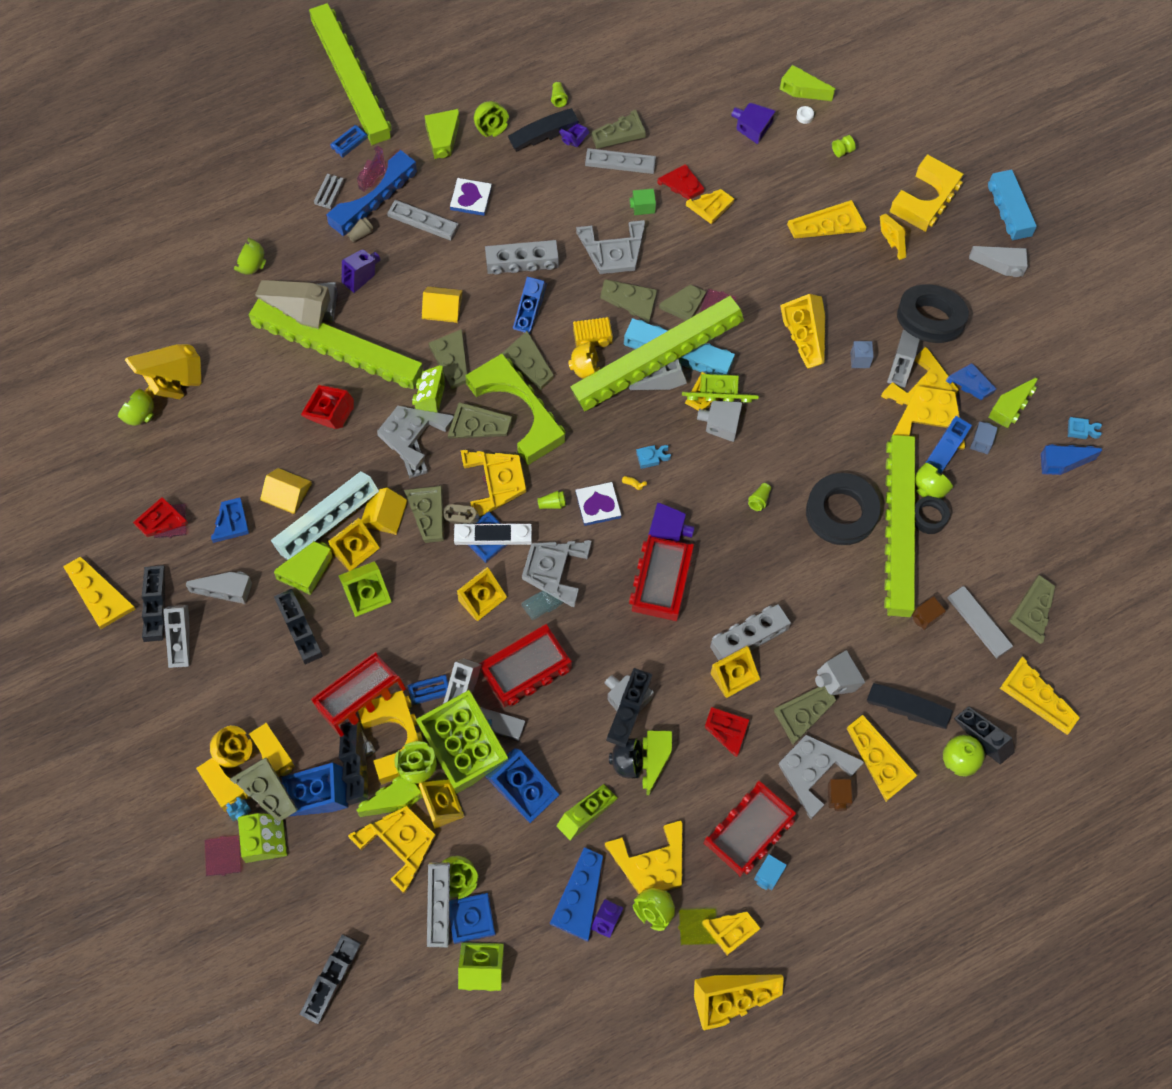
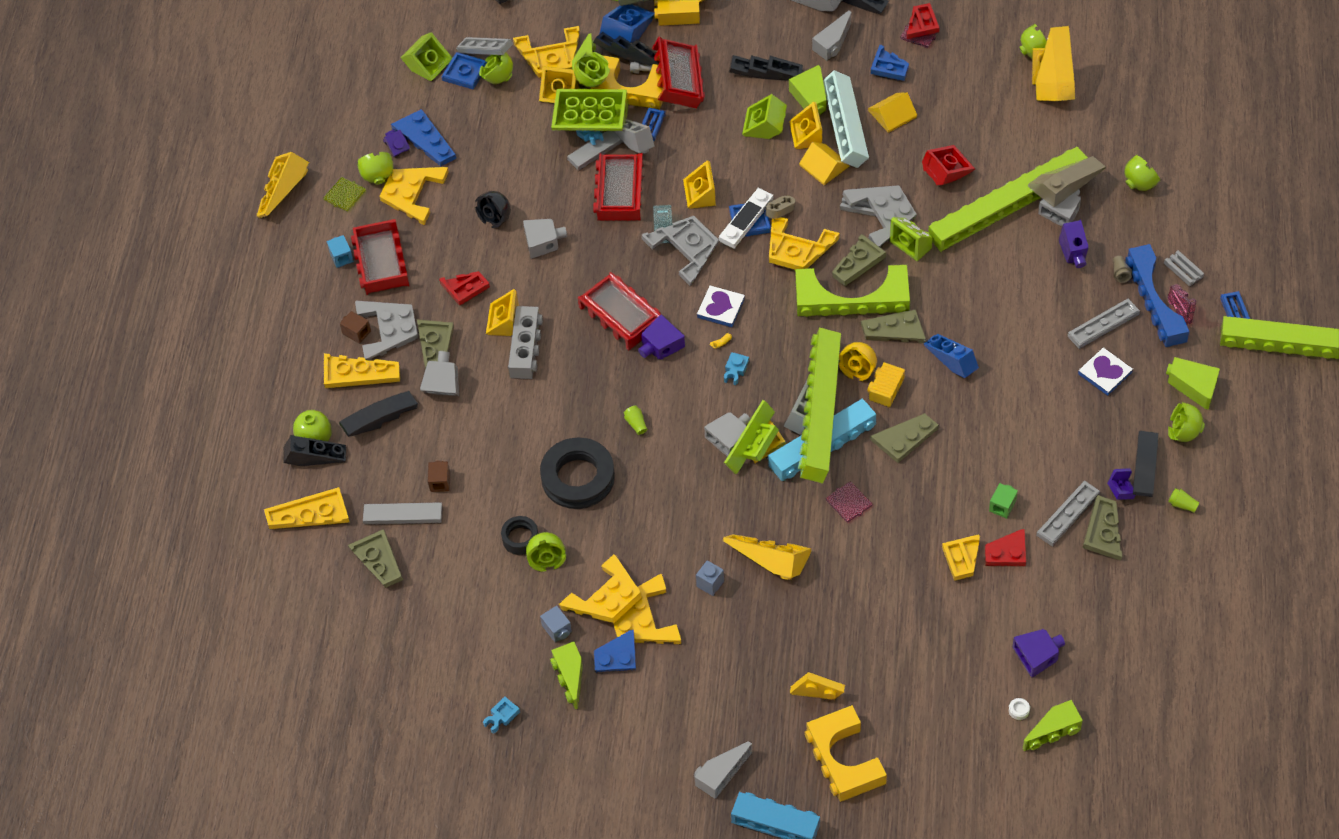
camera: 130 degrees right, 10 degrees down
(428, 512) = (803, 191): olive wing -> none
(441, 304) = (1001, 293): yellow slope -> none
(450, 354) = (938, 273): olive wing -> none
(522, 785) = (531, 139): blue slope -> none
(529, 251) = (1006, 372): light grey brick -> none
(552, 501) = (745, 276): lime cone -> none
(586, 812) = (478, 167): lime slope -> none
(613, 254) = (960, 446): light grey wing -> none
(629, 707) = (525, 217): black slope -> none
(658, 751) = (484, 232): lime slope -> none
(684, 303) = (869, 476): olive wing -> none
(731, 930) = (323, 207): yellow wing -> none
(829, 221) = (873, 649): yellow wing -> none
(842, 146) = (953, 713): lime wheel -> none
(900, 526) = (525, 502): lime brick -> none
(903, 359) = (682, 611): light grey slope -> none
(928, 329) = (721, 634): black tyre -> none
(948, 443) = (570, 585): blue slope -> none
(1061, 459) = (486, 673): blue slope -> none

